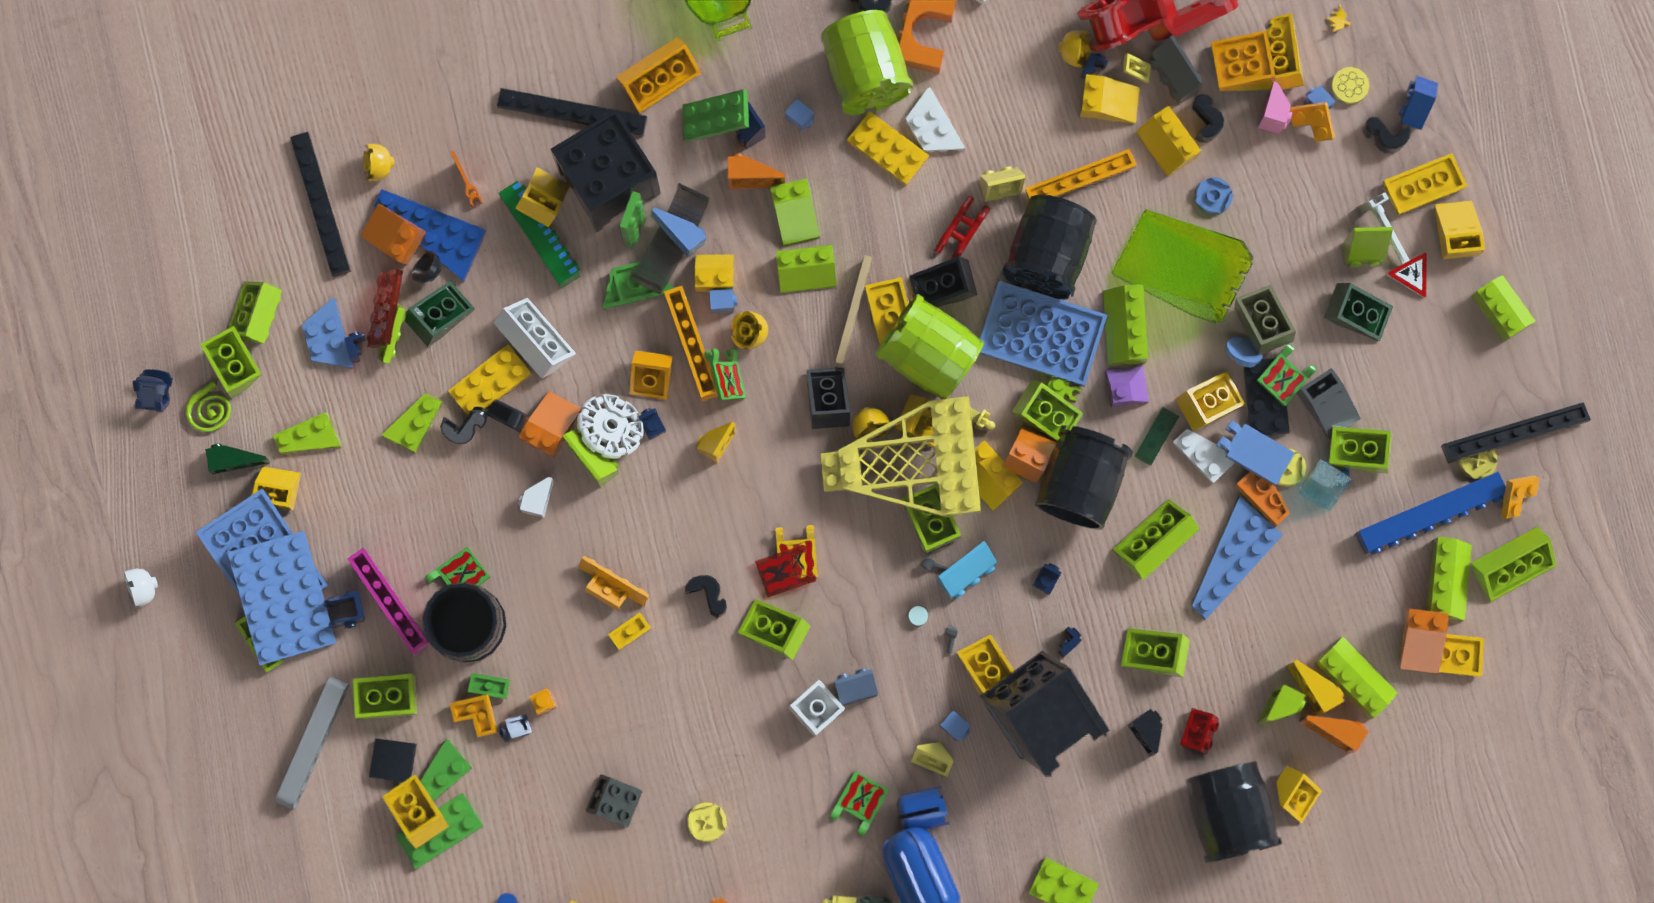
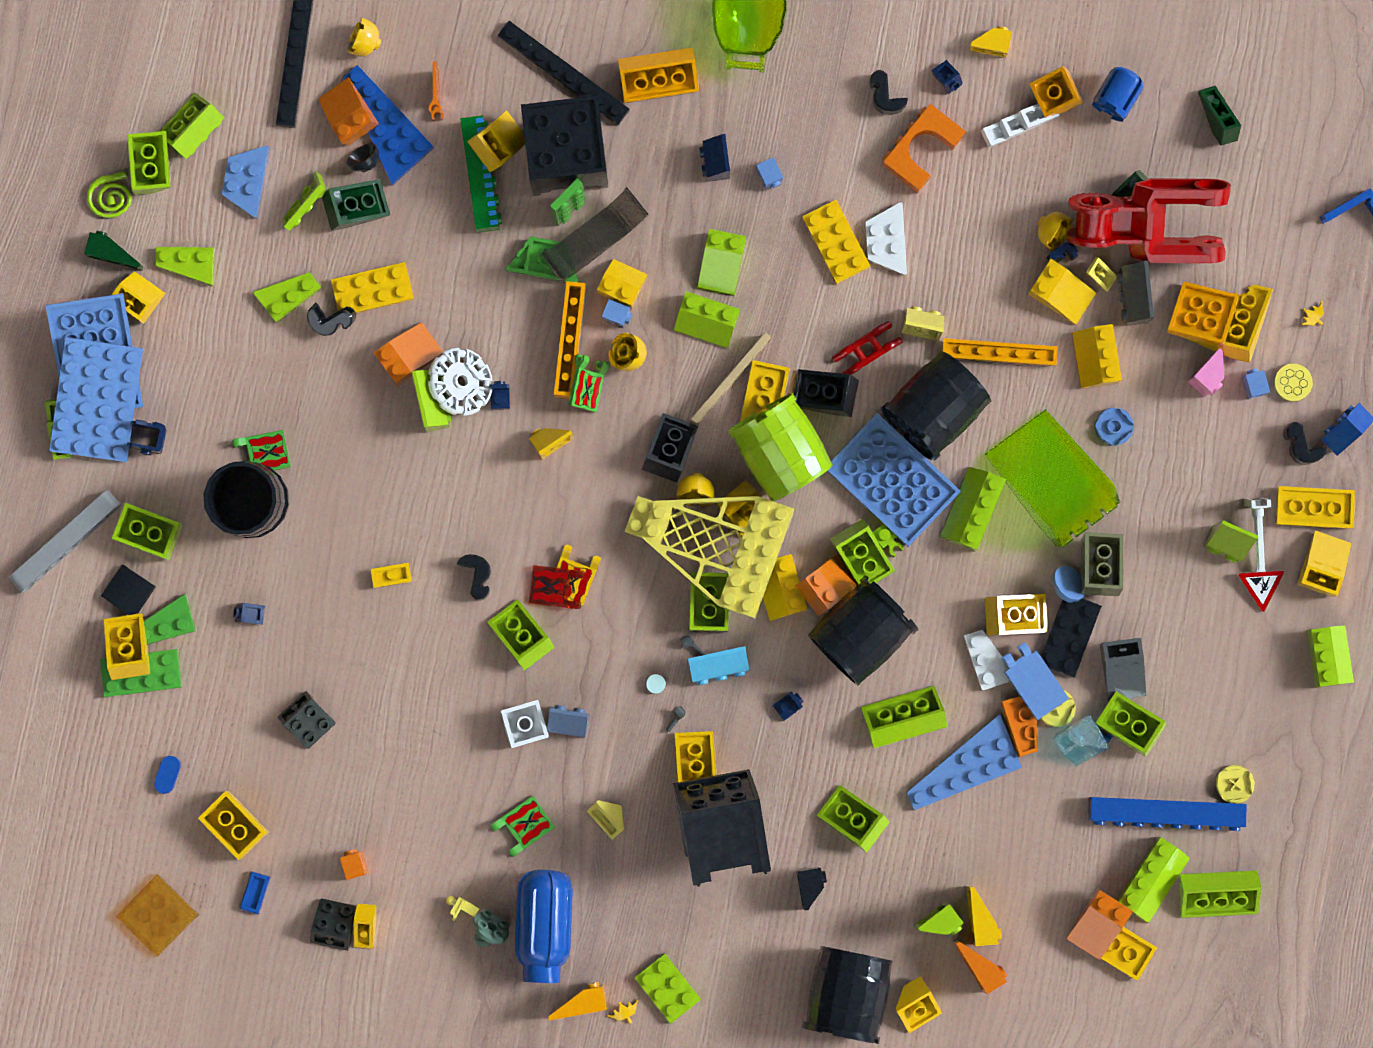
camera: 25 degrees right, 5 degrees up
(152, 390) = (67, 156): dark blue piece -> none
(354, 350) = (263, 202): dark blue bracket -> none
(385, 308) = (308, 178): clear red plate -> none
(389, 601) = (189, 445): dark pink brick -> none
(477, 708) = (224, 581): light orange plate -> none
(489, 685) = (243, 565): bright green plate -> none
(507, 415) = (374, 329): black animal -> none
(534, 337) = (430, 267): white slope -> none
(536, 498) = (364, 415): white slope -> none
(543, 701) = (284, 602): light orange brick -> none
(610, 587) = (391, 526): light orange bracket -> none
(650, 375) = (519, 351): light orange slope -> none
(682, 232) = (609, 232): medium blue slope -> none
(707, 822) = (380, 778): light yellow tile -> none
(715, 115) = (690, 139): bright green plate -> none
(751, 174) = (696, 207): orange slope -> none
(866, 62) = (851, 153): lime piece -> none
(920, 801) = (575, 859): blue cylinder -> none
(956, 727) = (641, 799): medium blue brick -> none
(981, 420) = (798, 533): light yellow piece -> none
(1069, 645) = (776, 775): dark blue bracket -> none
(1126, 386) = (947, 564): medium lavender slope -> none
(1156, 436) = (951, 623): clear green tile -> none
(1200, 731) = (858, 908): red bracket -> none
(1210, 116) = (1148, 352): black animal -> none
(1283, 378) = (1093, 626): flag -> none
(1317, 116) = (1245, 397): light orange plate -> none
(1356, 678) = (1024, 928): lime slope -> none
(1358, 311) = (1193, 596): dark green slope -> none
(1515, 432) = (1281, 776): black plate -> none
(1515, 492) = (1252, 830): light orange plate -> none

